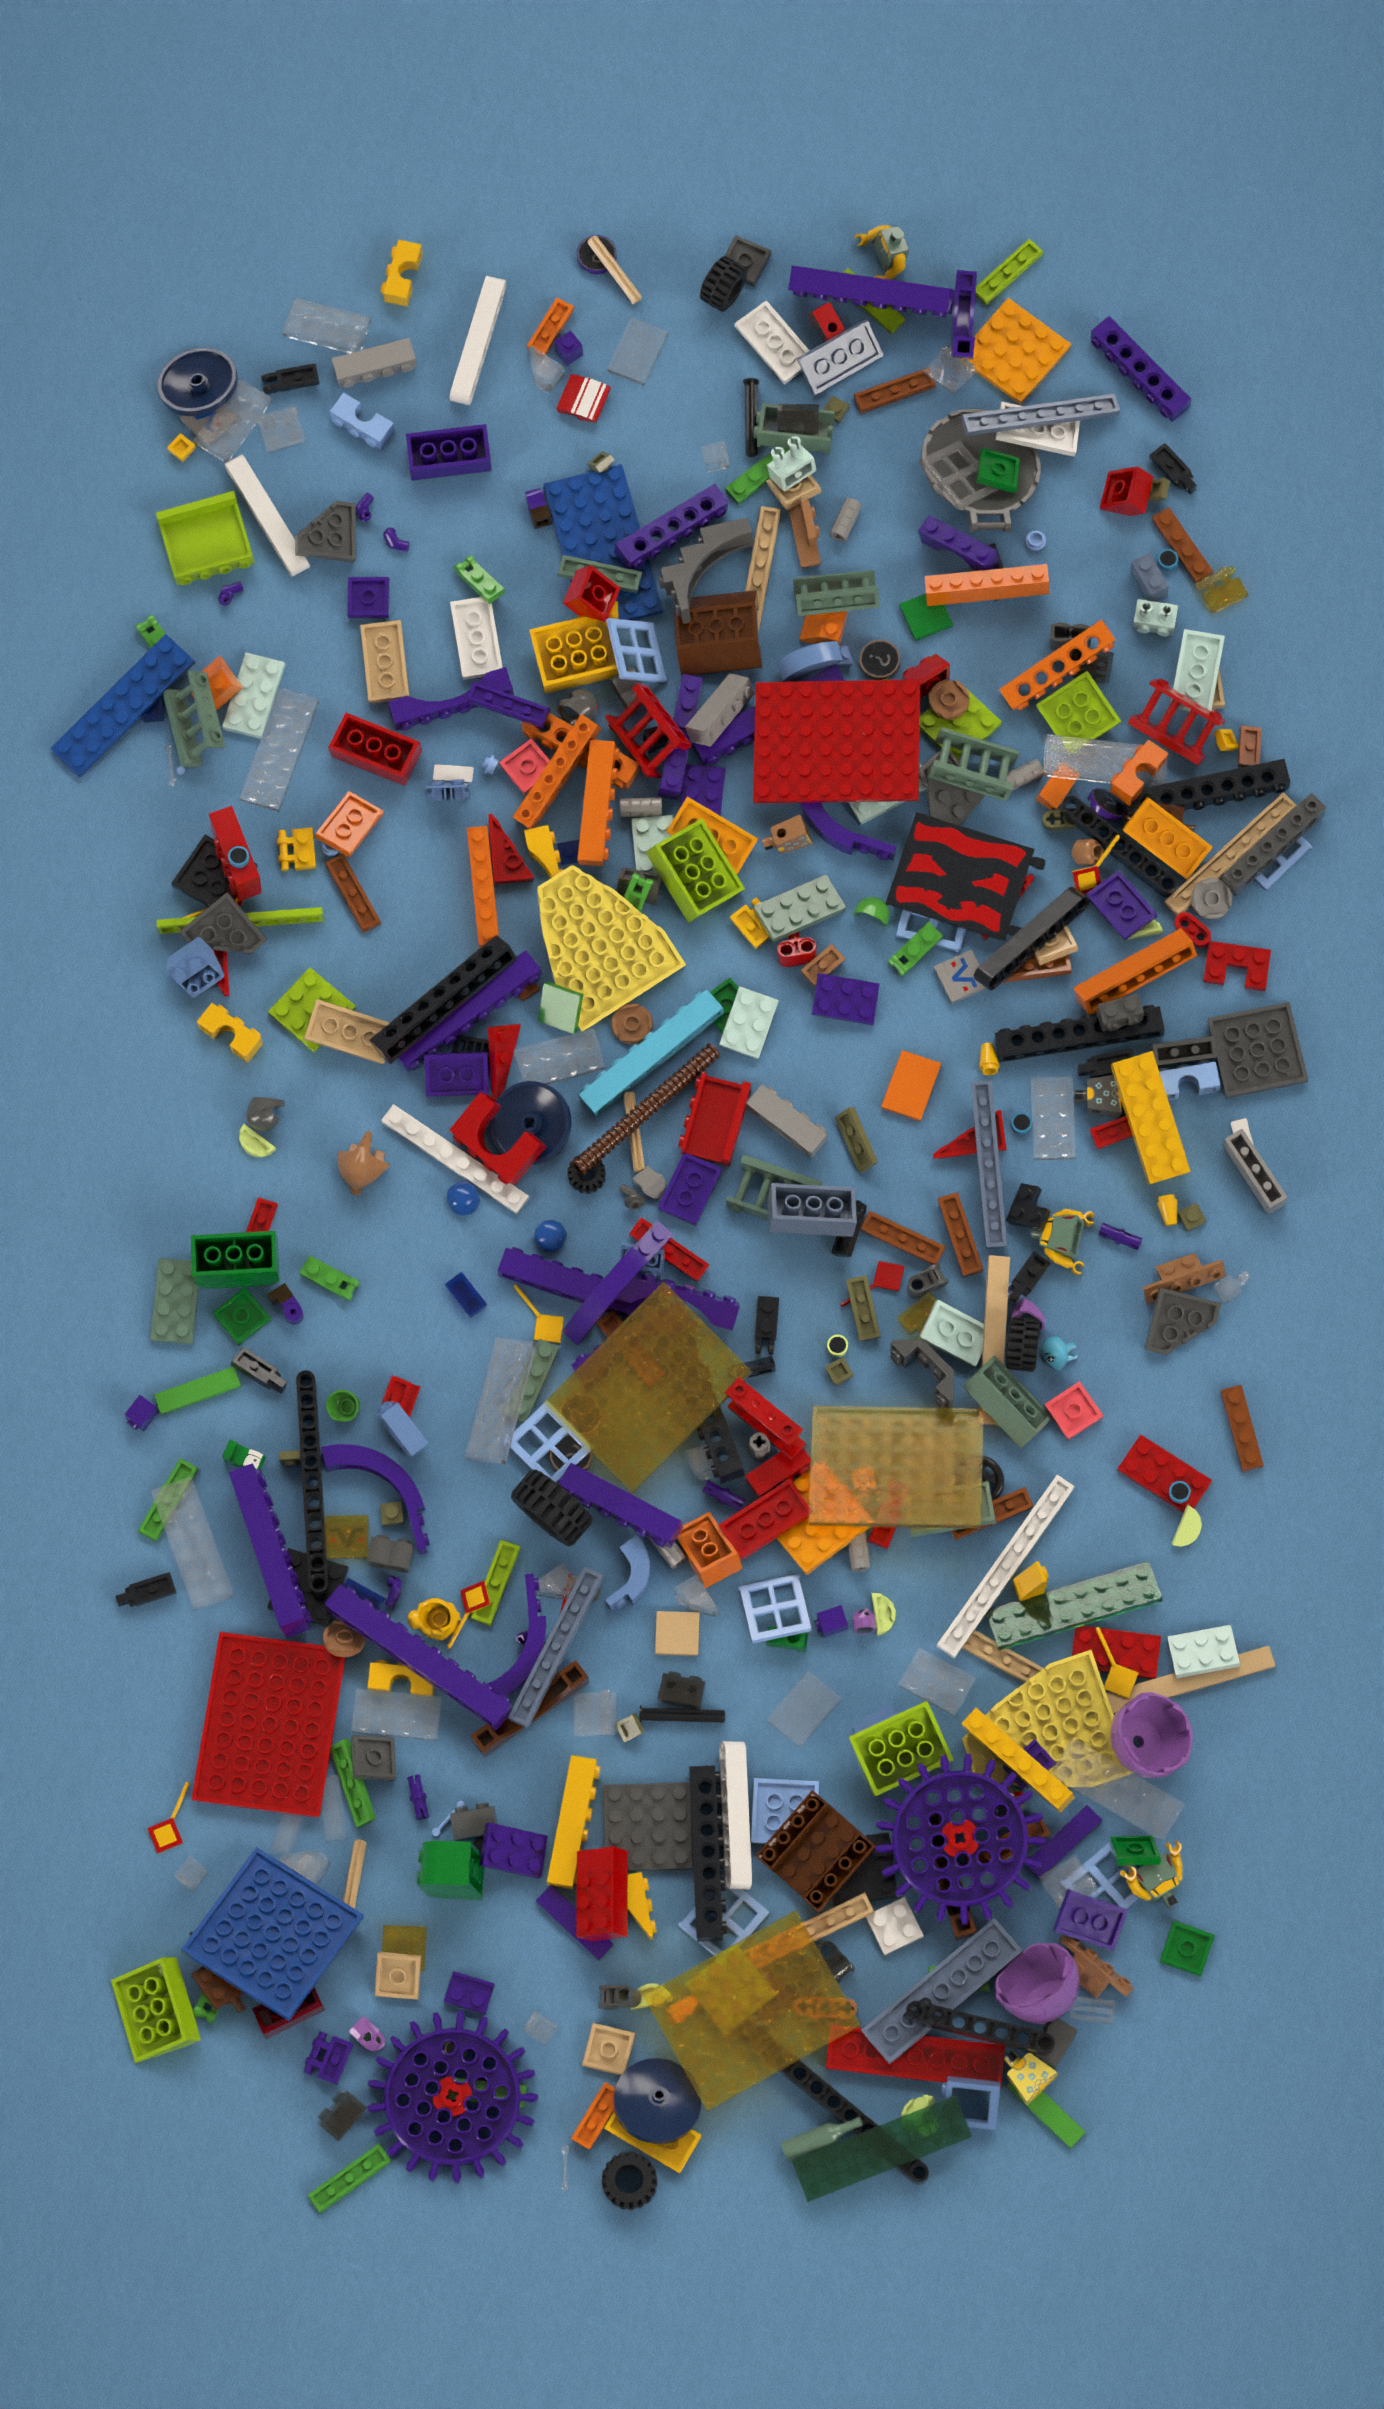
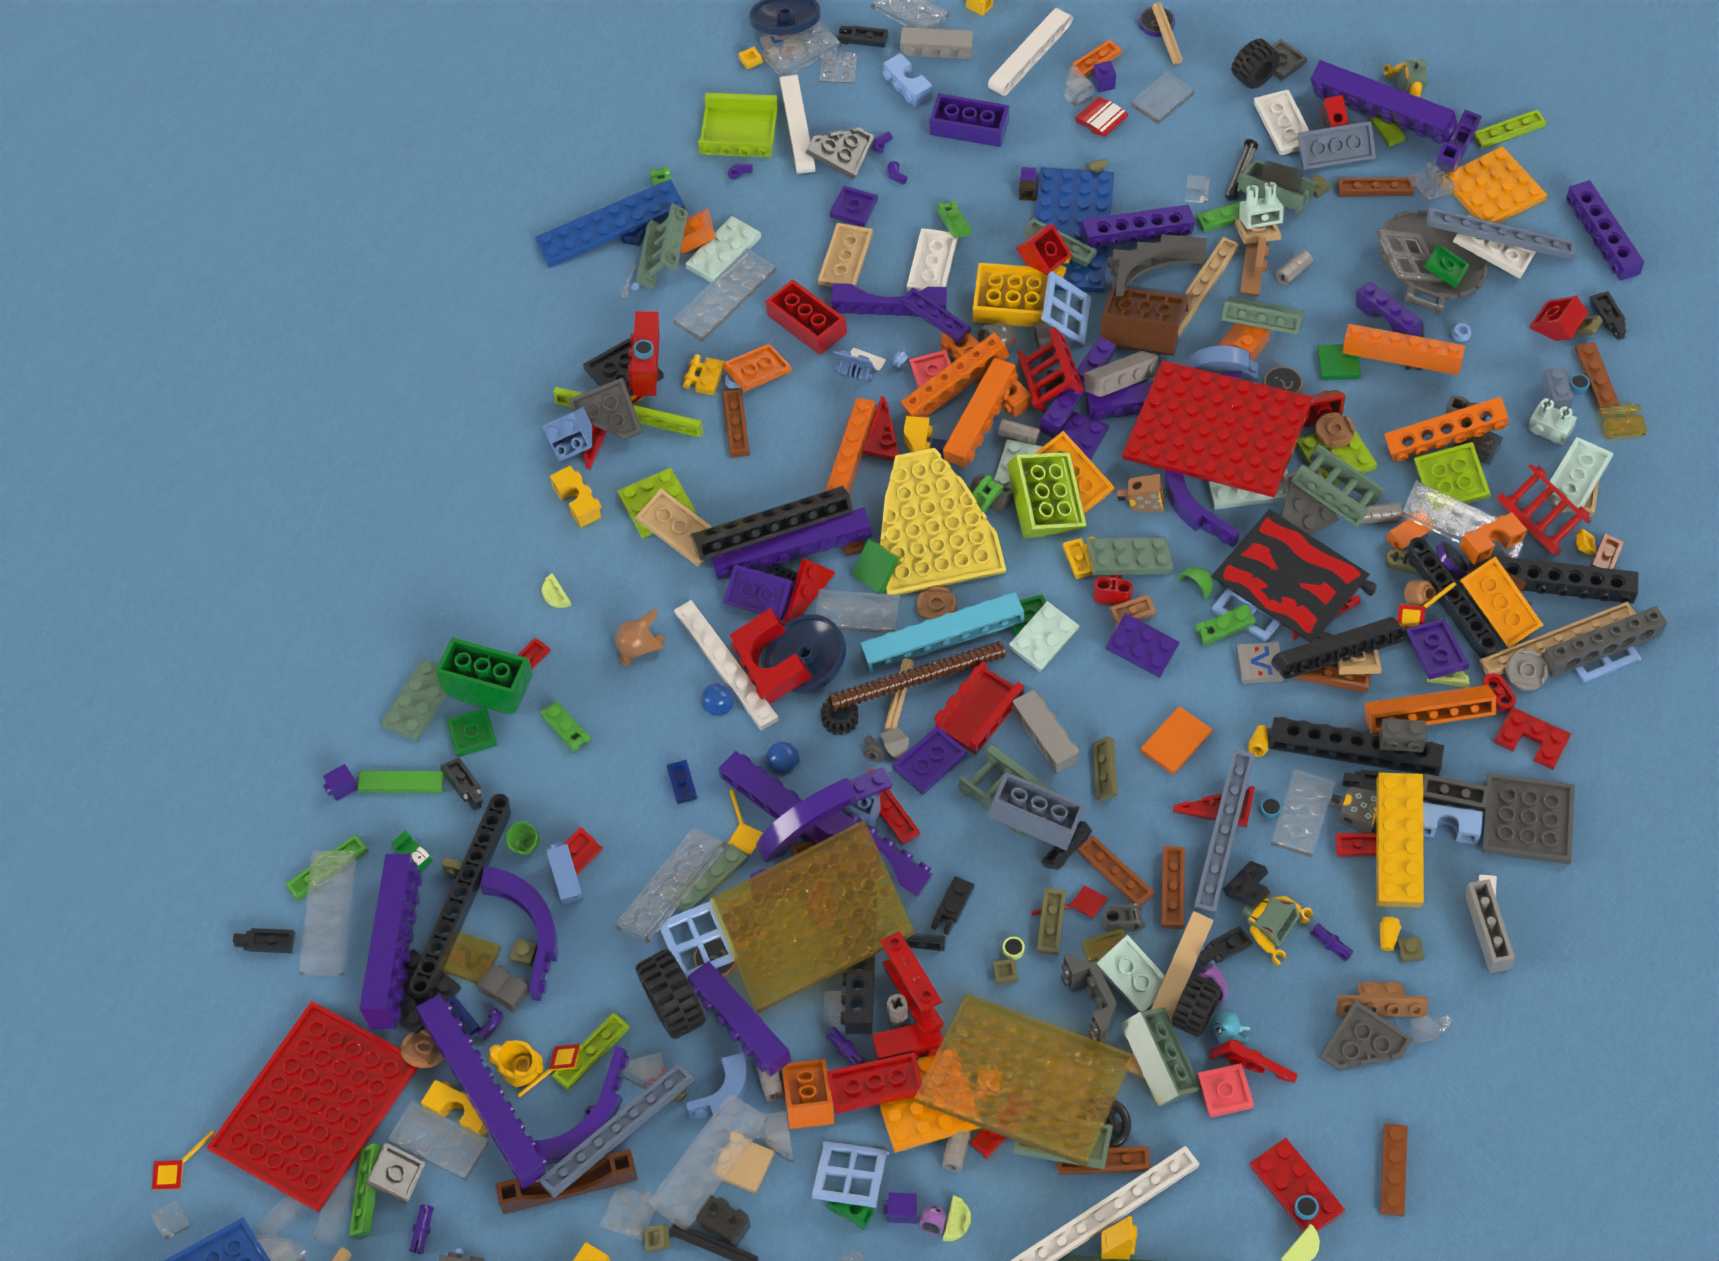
camera: 20 degrees right, 15 degrees down
(260, 1113) = (570, 564): dark grey helmet -> none
(290, 1306) = (518, 738): leg -> none
(647, 1644) = (707, 1161): none -> clear plate
(1086, 1374) = (1250, 1060): none -> red wing

